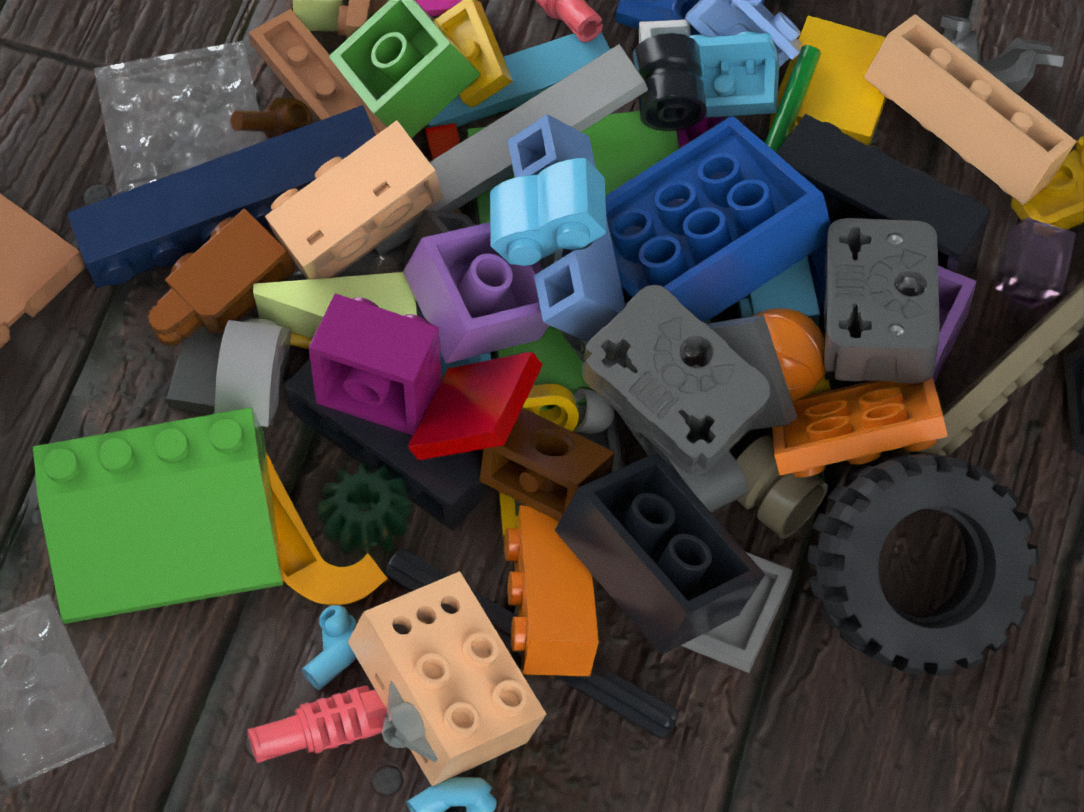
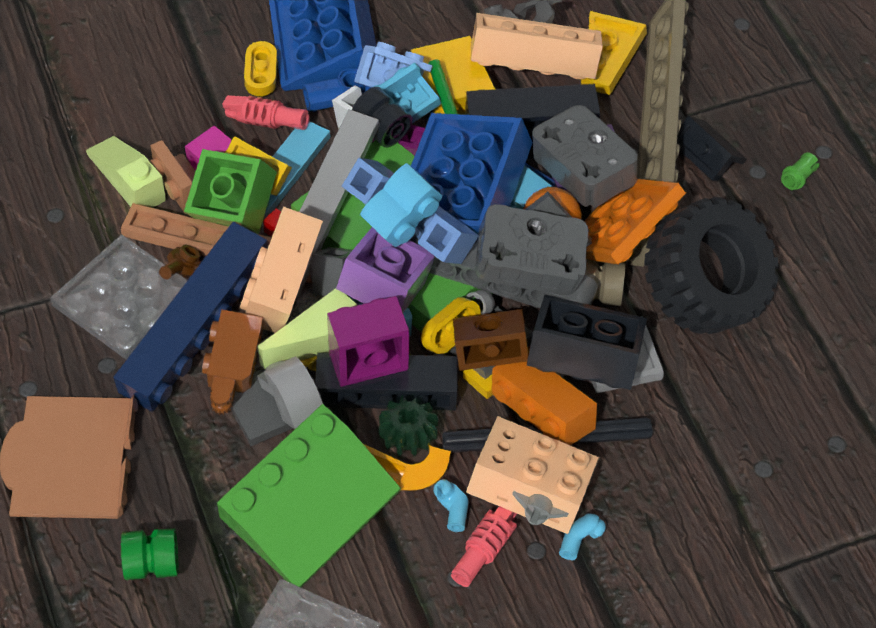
camera: 40 degrees left, 5 degrees down
(475, 406) = (436, 330): red tile -> none
(1035, 262) = (622, 102): clear purple brick -> none

